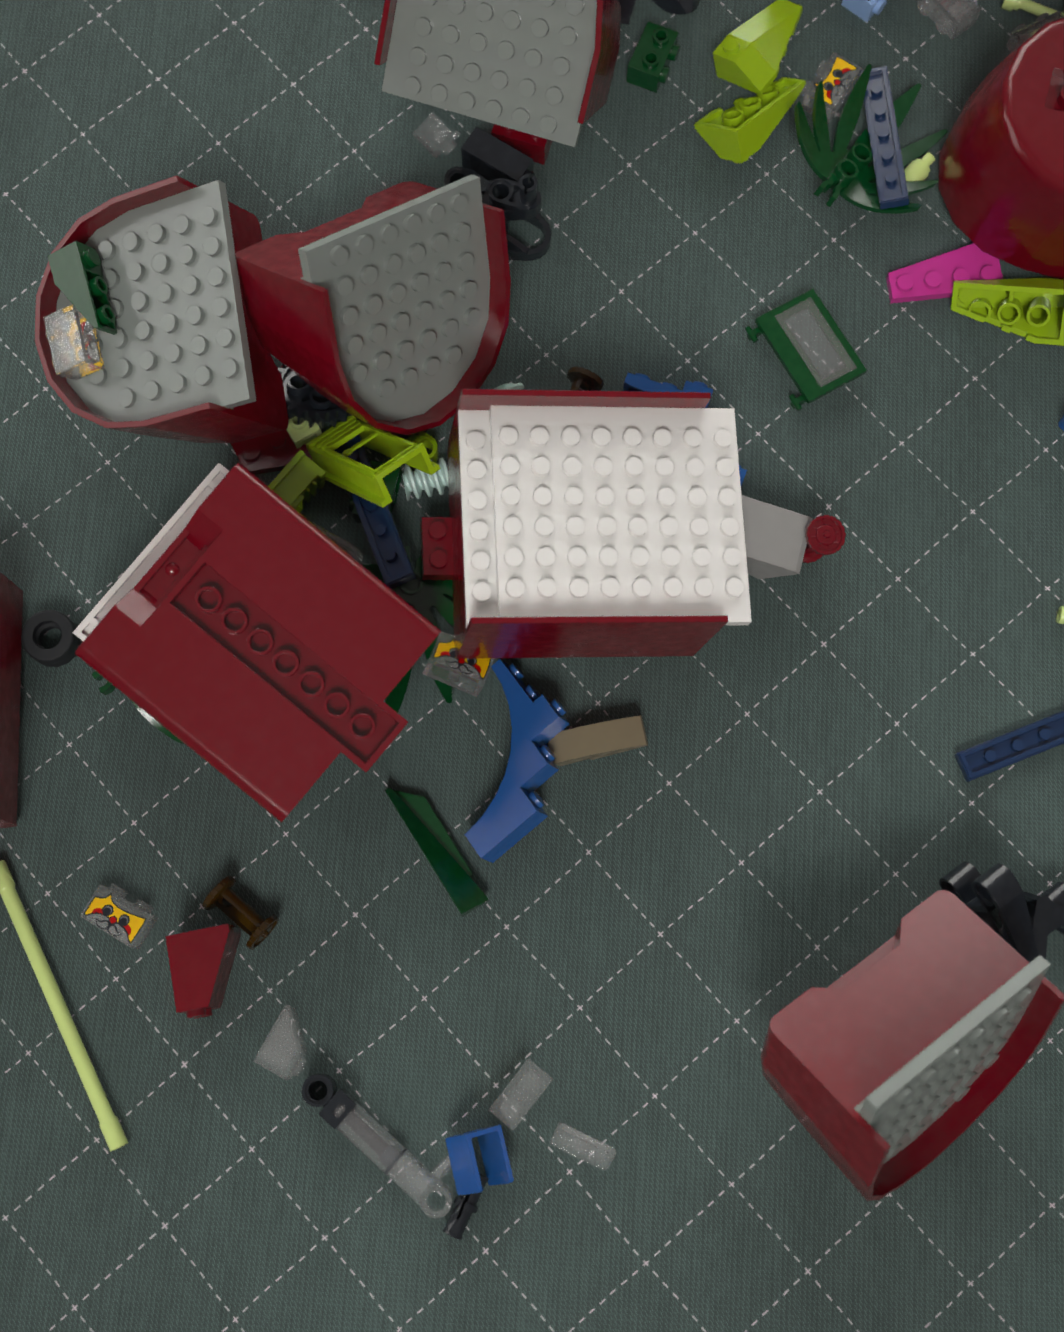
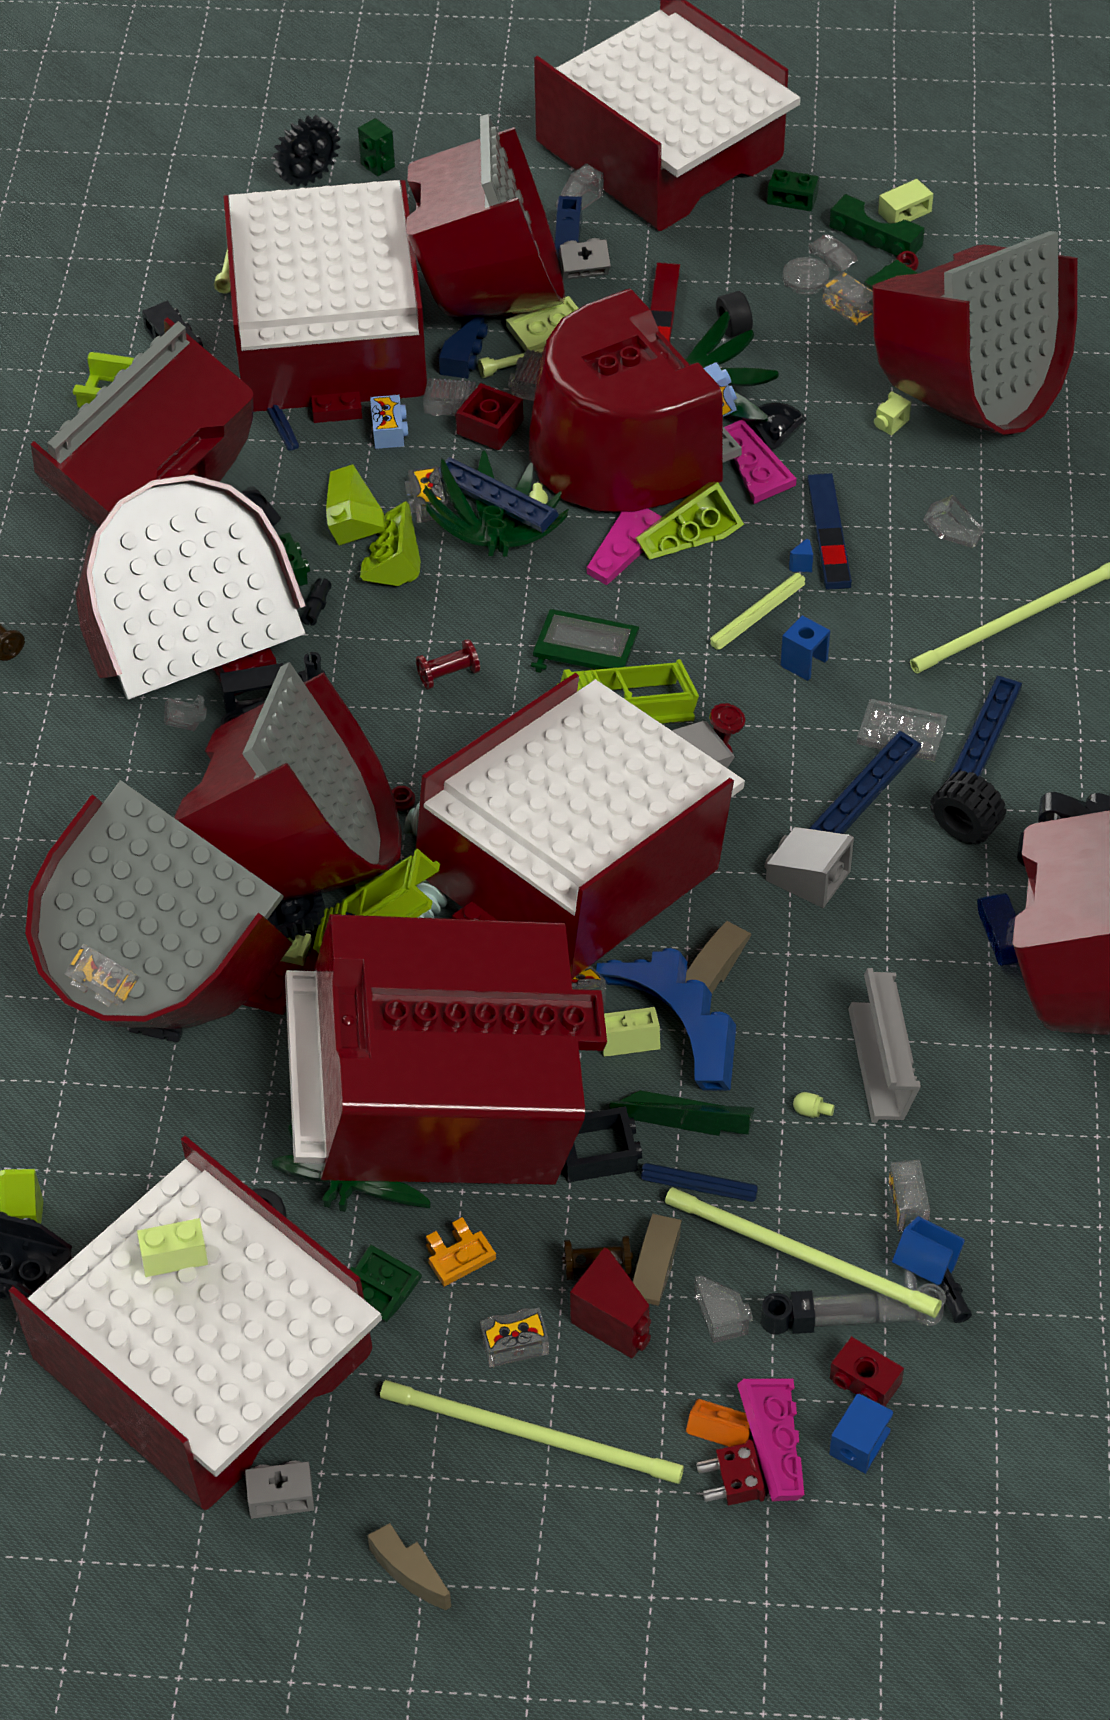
camera: 45 degrees left, 25 degrees down
(80, 279) = (68, 932): dark green slope -> none
(80, 774) = (385, 1281): none -> dark green slope
(151, 812) = (461, 1258): none -> light orange plate
(157, 1192) = (738, 1472): none -> dark red piece
(192, 1134) = (718, 1424): none -> orange slope
(220, 1174) = (771, 1422): none -> dark pink wing
(270, 1255) = (861, 1433): none -> blue piece
(279, 957) = (657, 1257): none -> dark tan slope
(321, 794) = (605, 1164): none -> black window
(328, 1229) = (858, 1359): none -> dark red brick
(386, 919) = (699, 1182): none -> dark blue axle
(413, 1196) = (912, 1298): none -> yellowish green piece
(468, 738) = (632, 1031): none -> yellowish green hinge
(519, 356) = (403, 797): none -> dark red plate
(538, 938) = (812, 1105): none -> yellowish green cylinder
(583, 1146) = (982, 1191): clear slope -> none
(637, 949) = (884, 1049): none -> light grey piece
(641, 117) = (316, 601): none -> black pin
(677, 269) = (447, 664): none -> dark red hose
(746, 399) = (662, 707): none -> lime piece
(764, 723) = (811, 864): none -> light grey slope
(857, 930) = (998, 922): none -> clear blue beam
(881, 695) = (868, 784): none -> dark blue tile
(944, 799) = (968, 807): none -> black tyre
(958, 53) = (489, 416): none -> dark red brick
(967, 519) = (802, 642): none -> blue piece
(980, 666) = (885, 719): none -> clear plate
(985, 441) = (757, 611): none -> yellowish green axle

